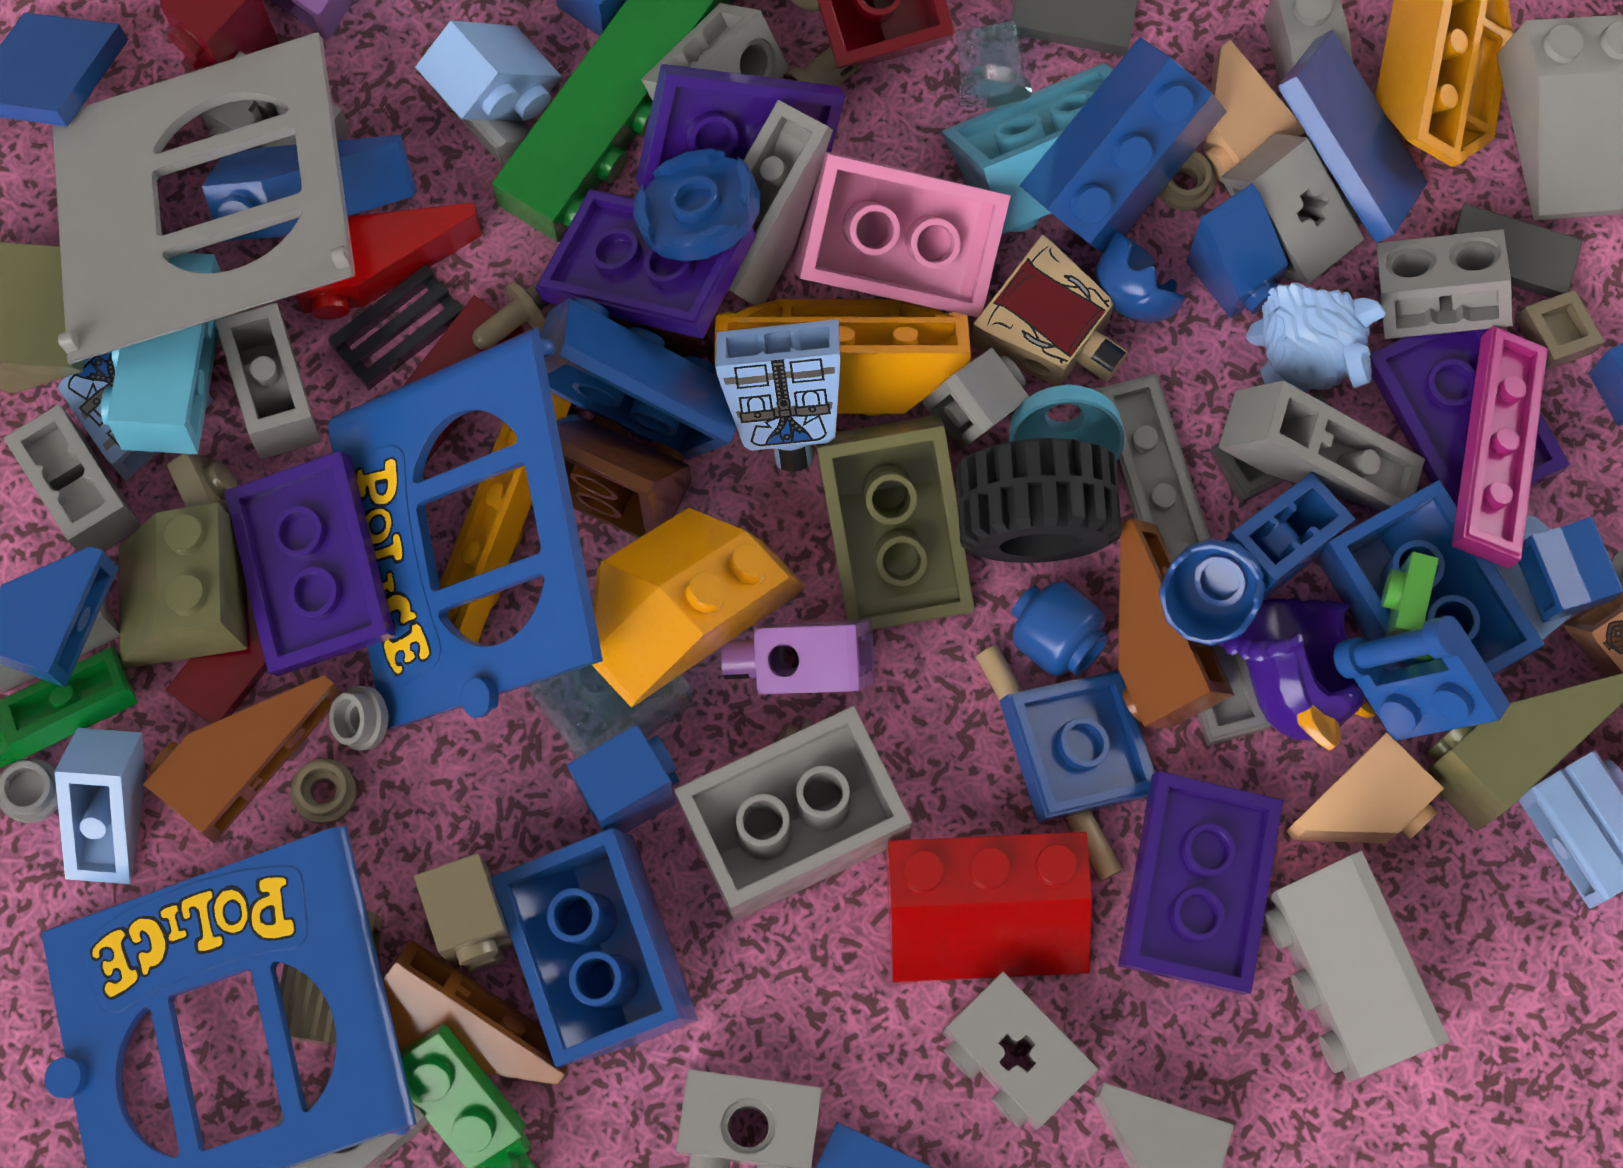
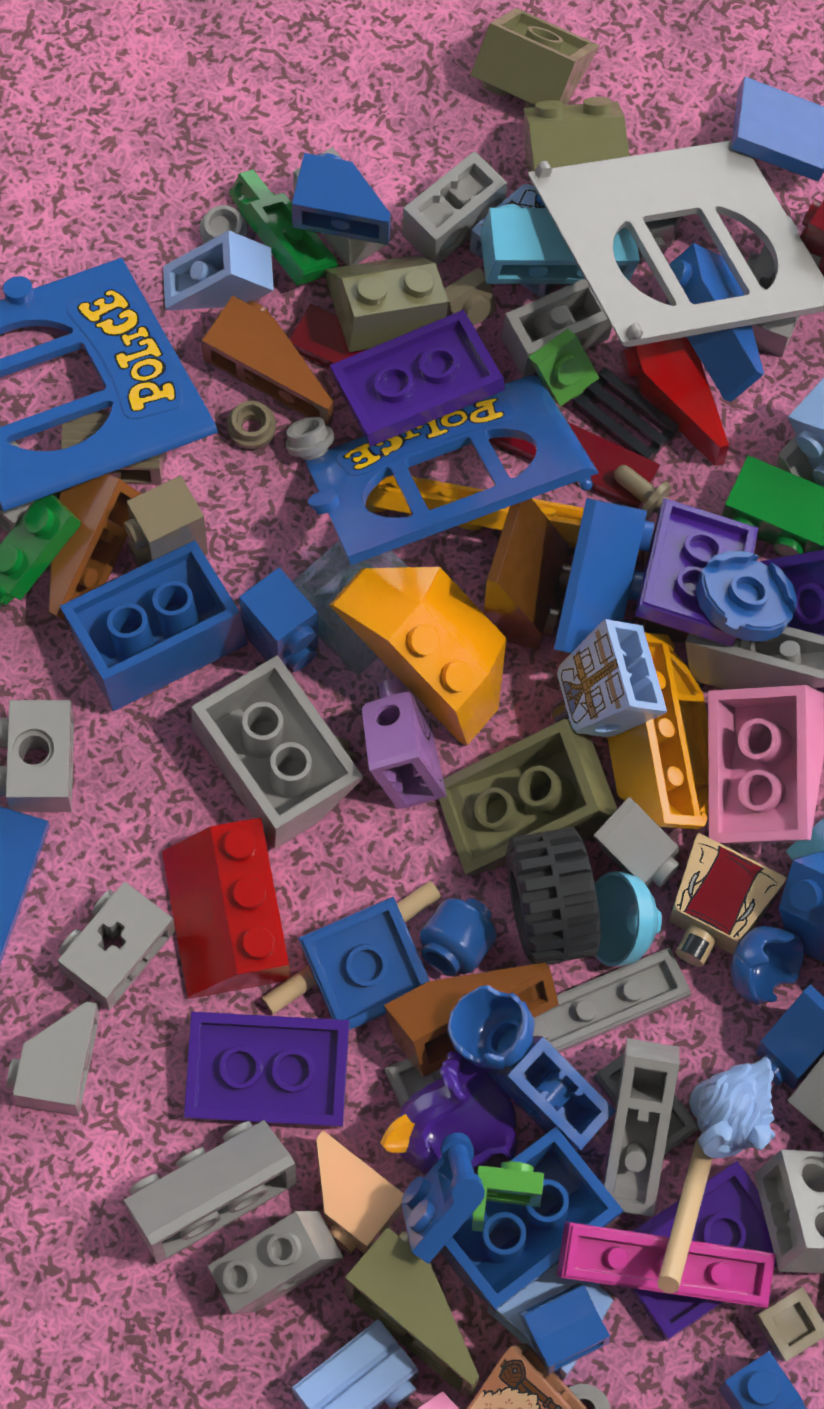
camera: 80 degrees right, 5 degrees down
(331, 379) = (564, 367): none -> bright green bracket
(1451, 411) = (685, 1221): none -> tan bar
(1453, 900) = (275, 1262): none -> light grey brick

